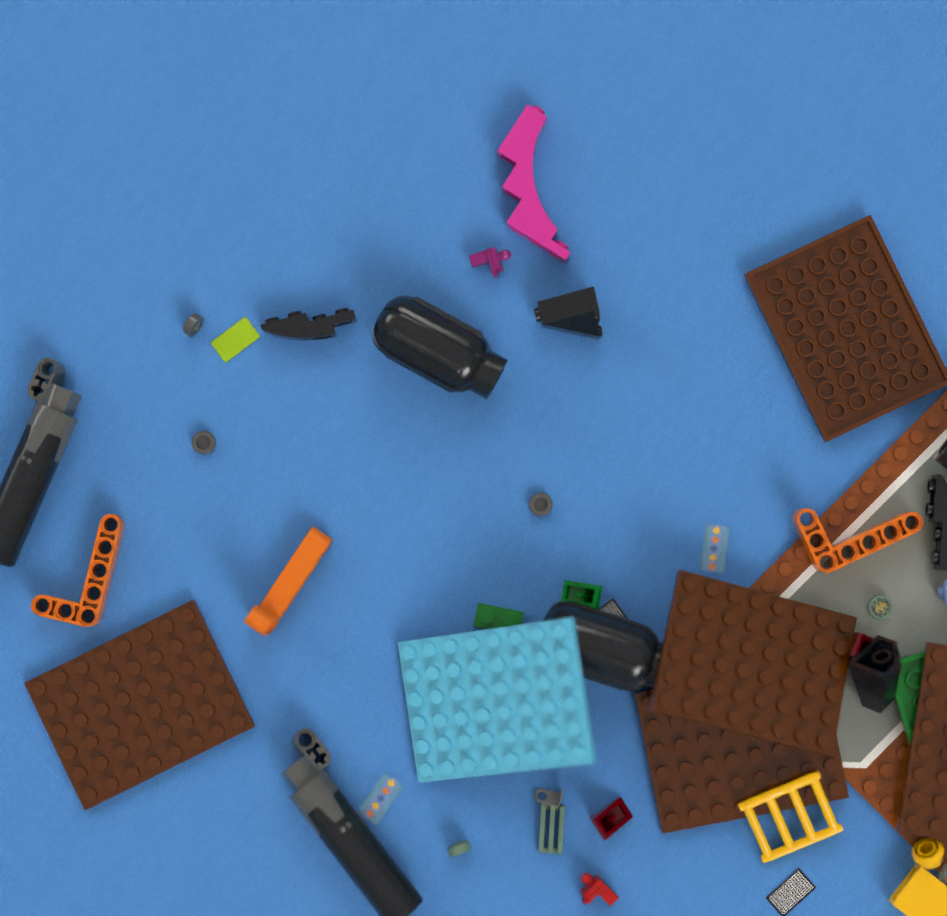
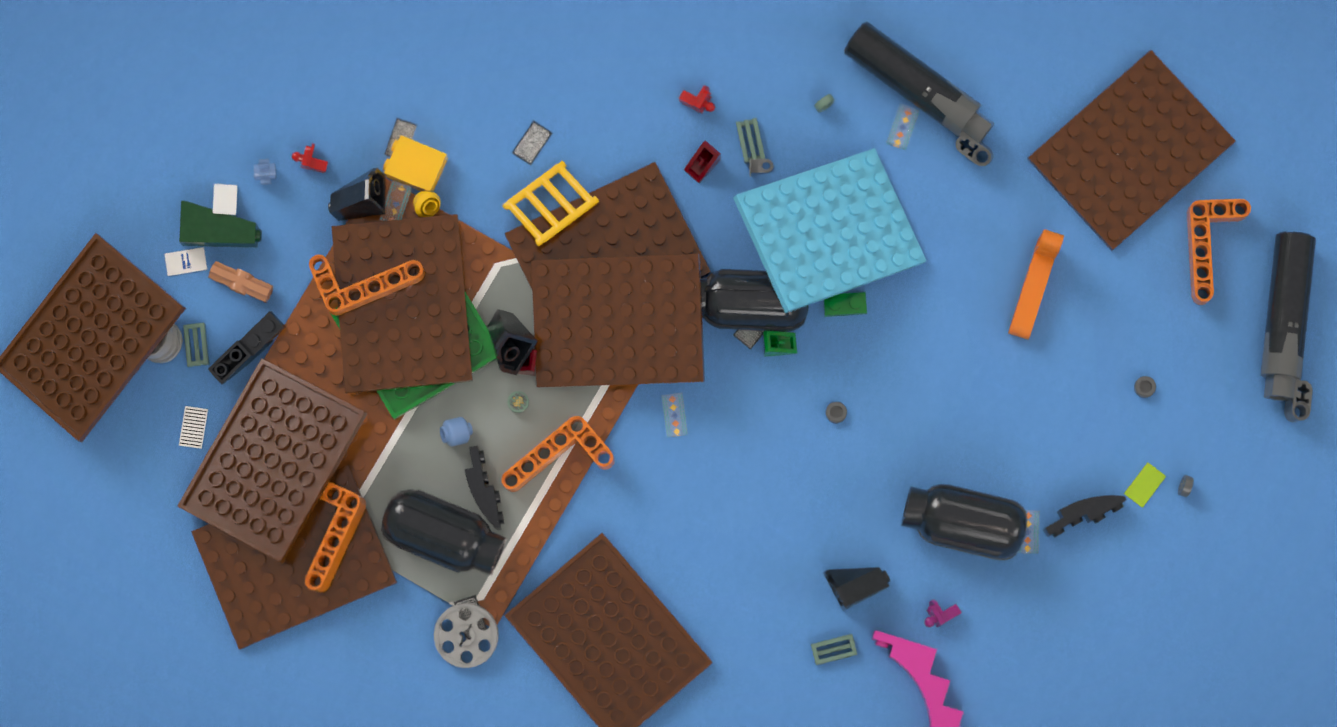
camera: 160 degrees right, 5 degrees down
(368, 322) = (1031, 540): none -> clear tile
(621, 264) = (851, 645): none -> sand green tile

